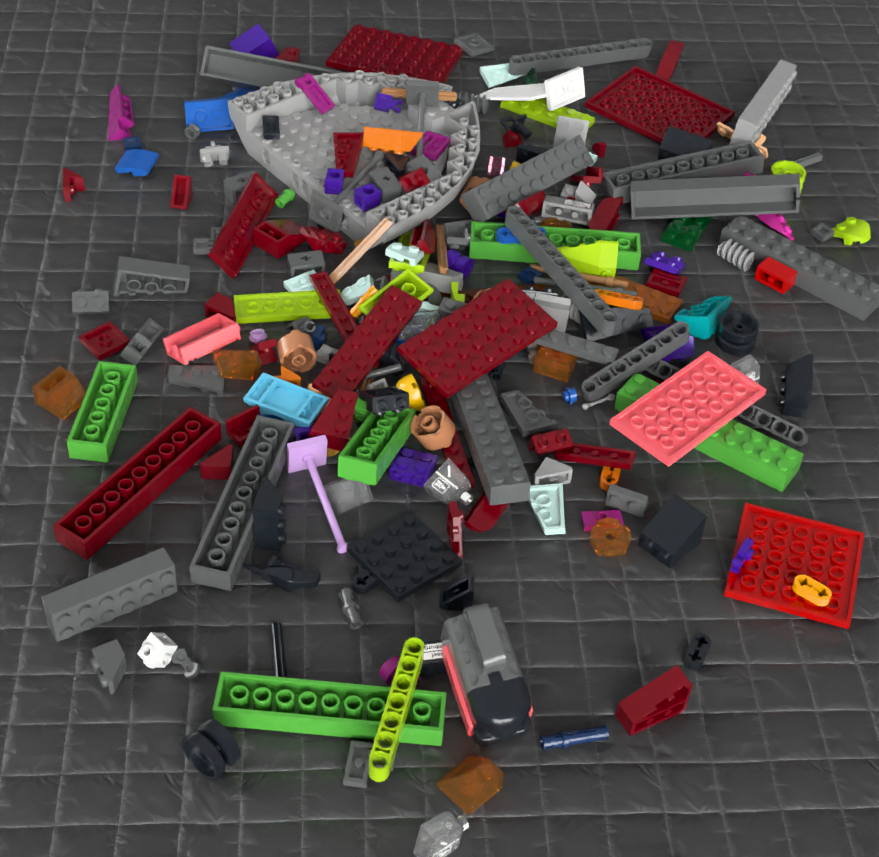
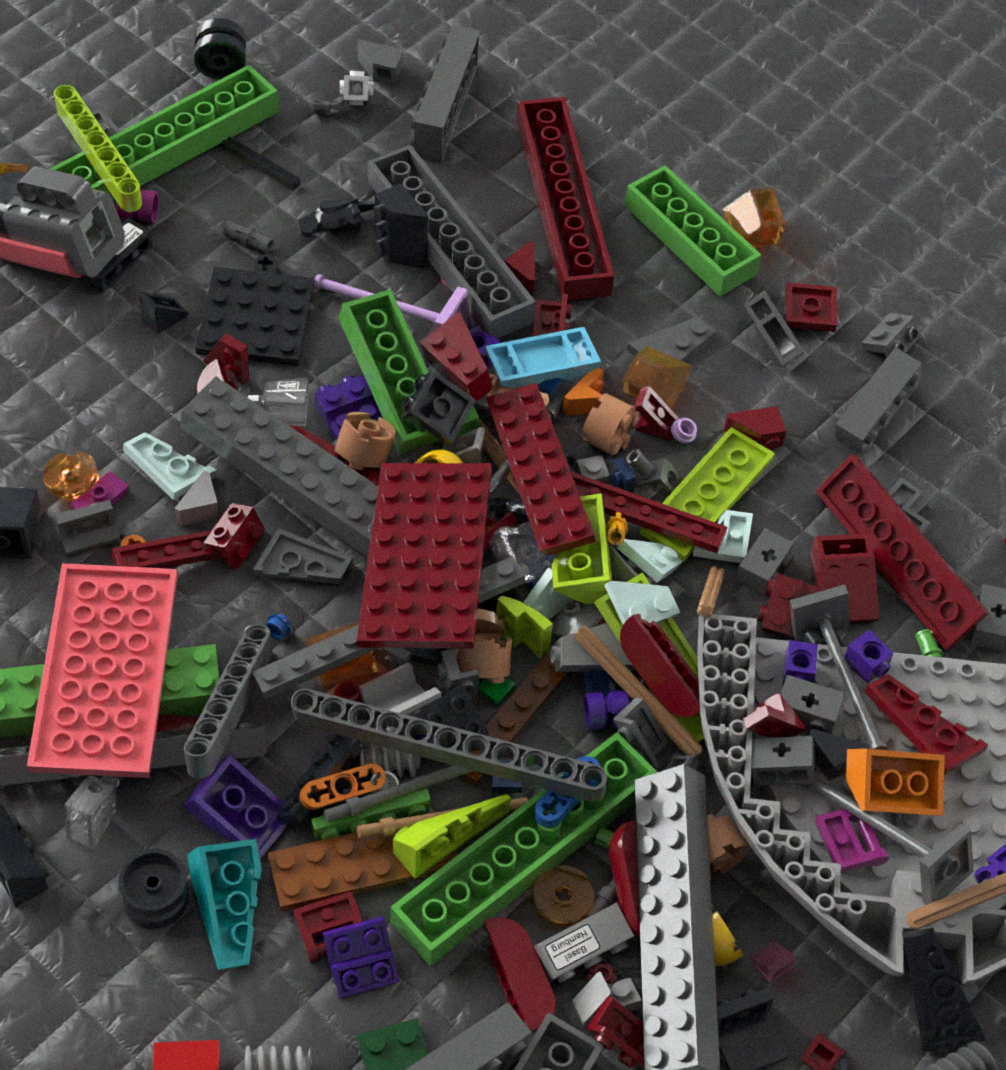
camera: 135 degrees right, 10 degrees up
(201, 338) = (722, 373): coral door -> none

